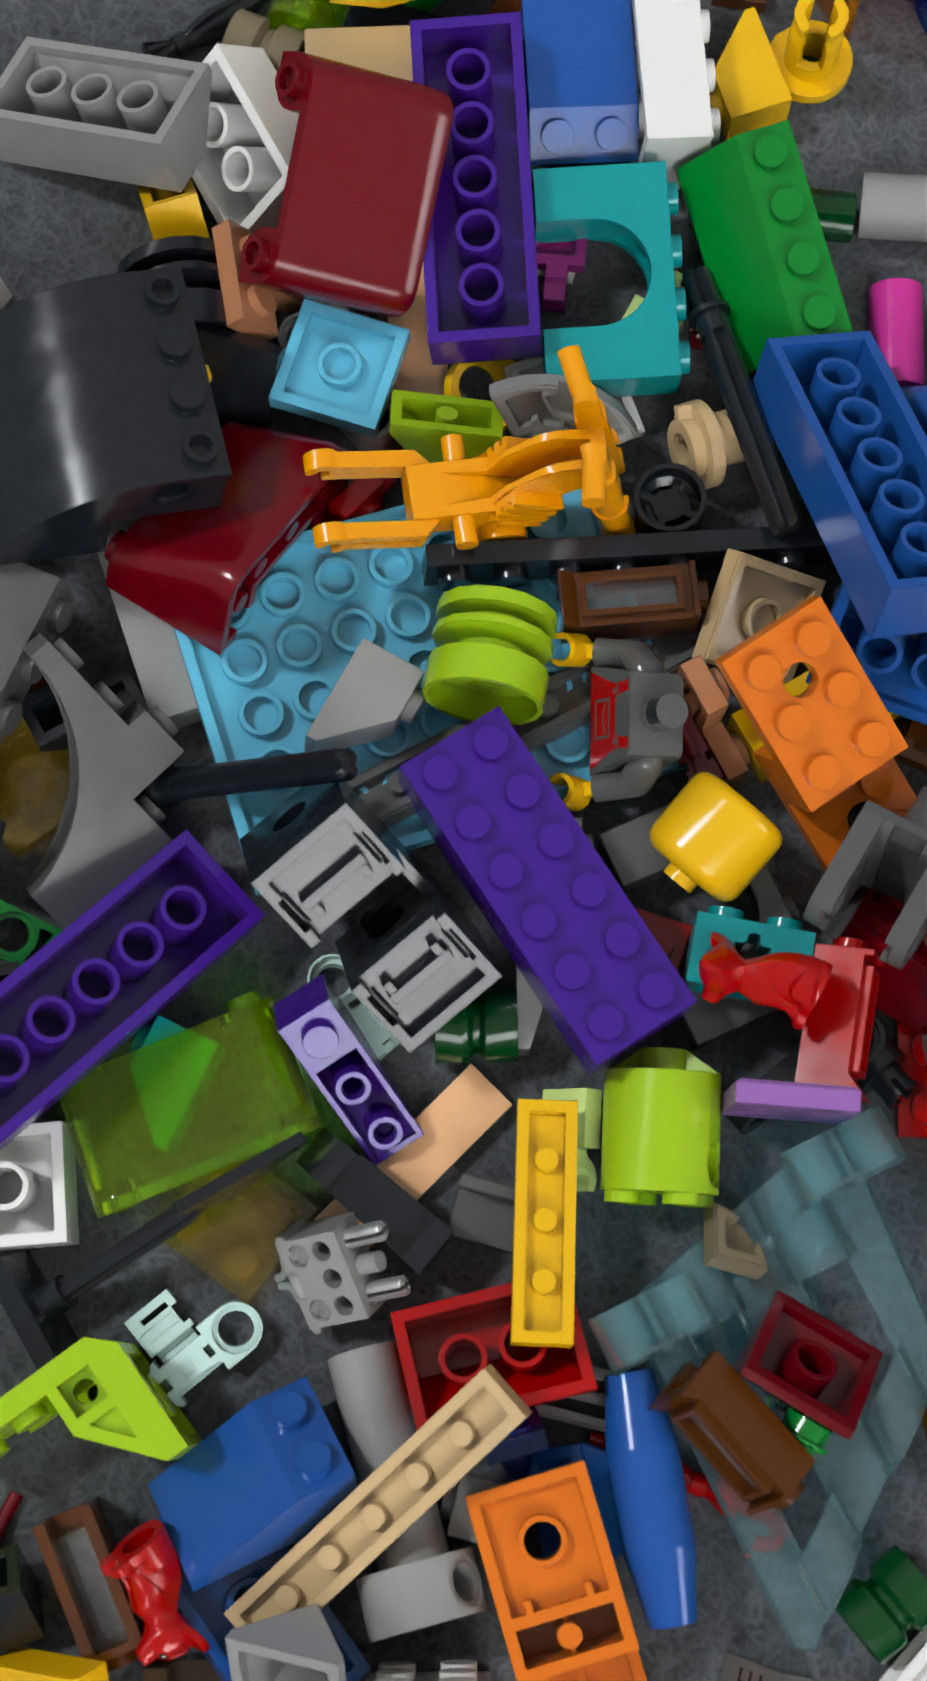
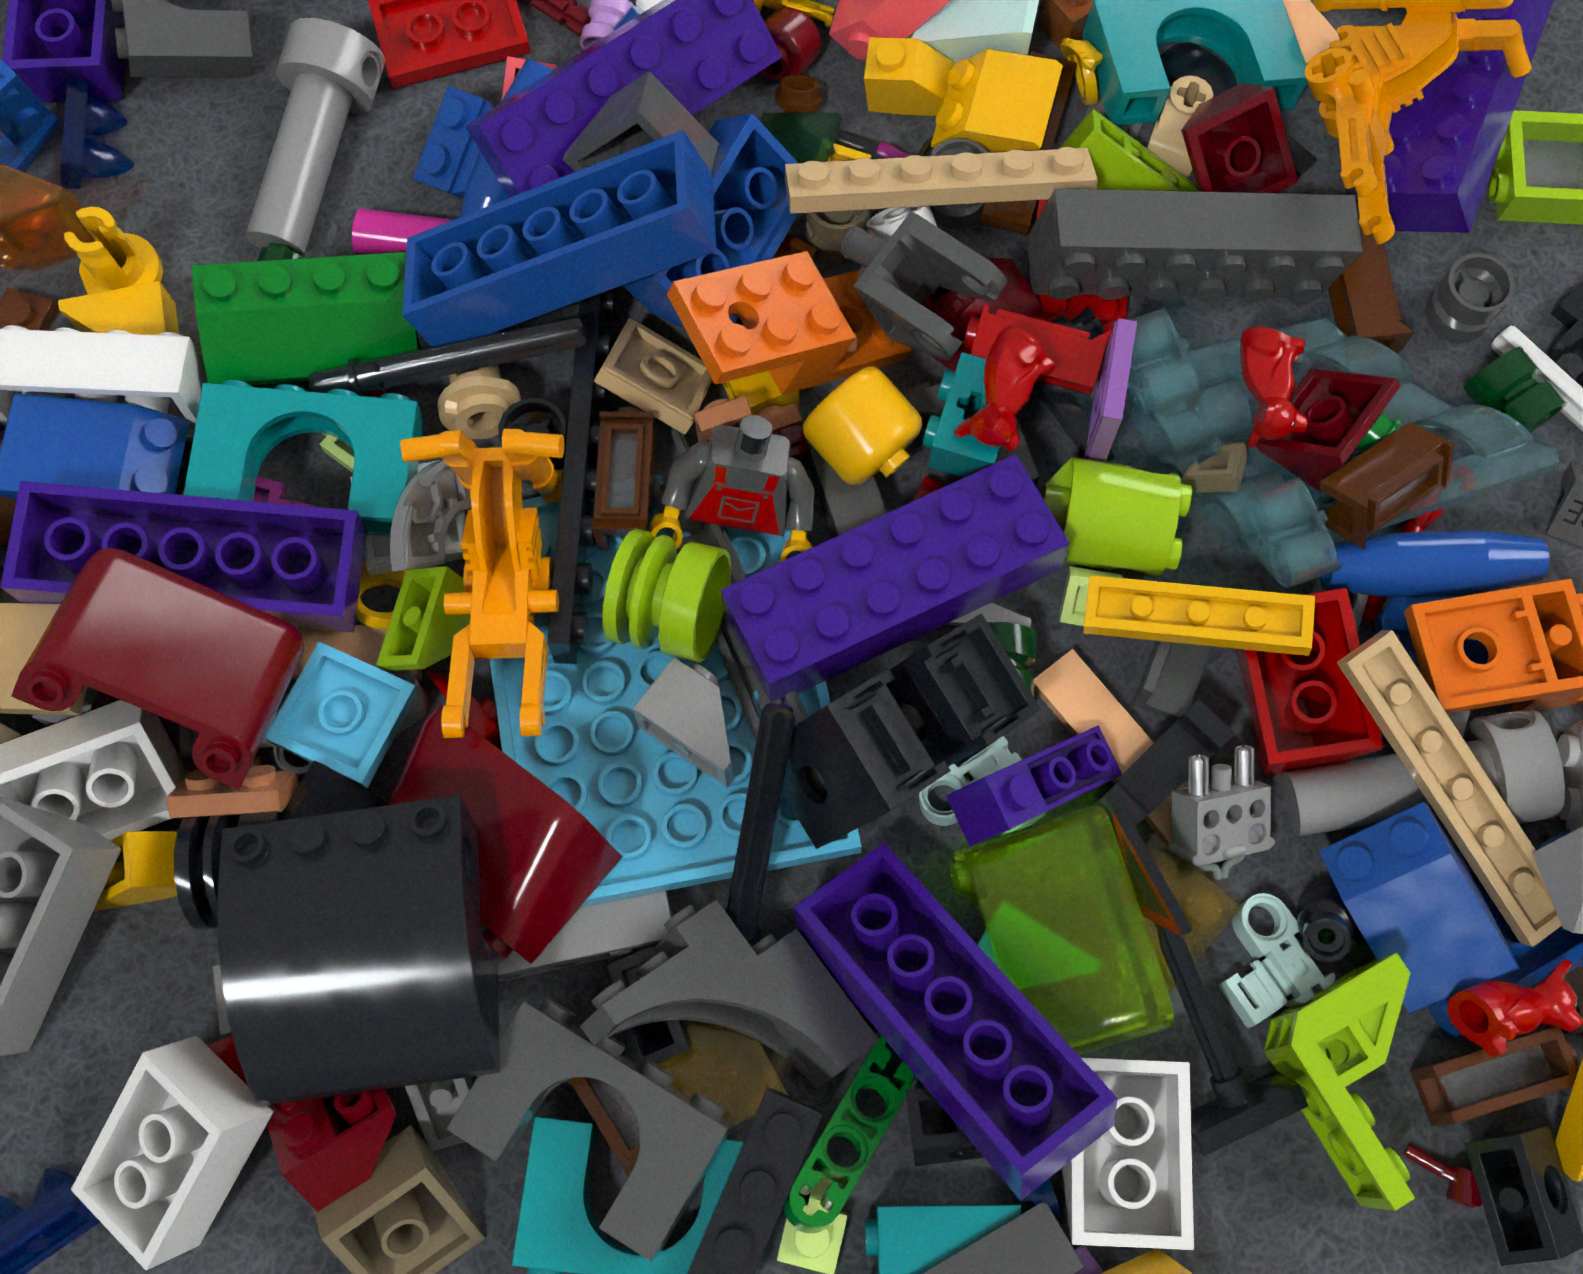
camera: 85 degrees left, 5 degrees down
(224, 1389) = (1329, 927): none -> black piece
(853, 1289) = (1269, 377): none -> red animal

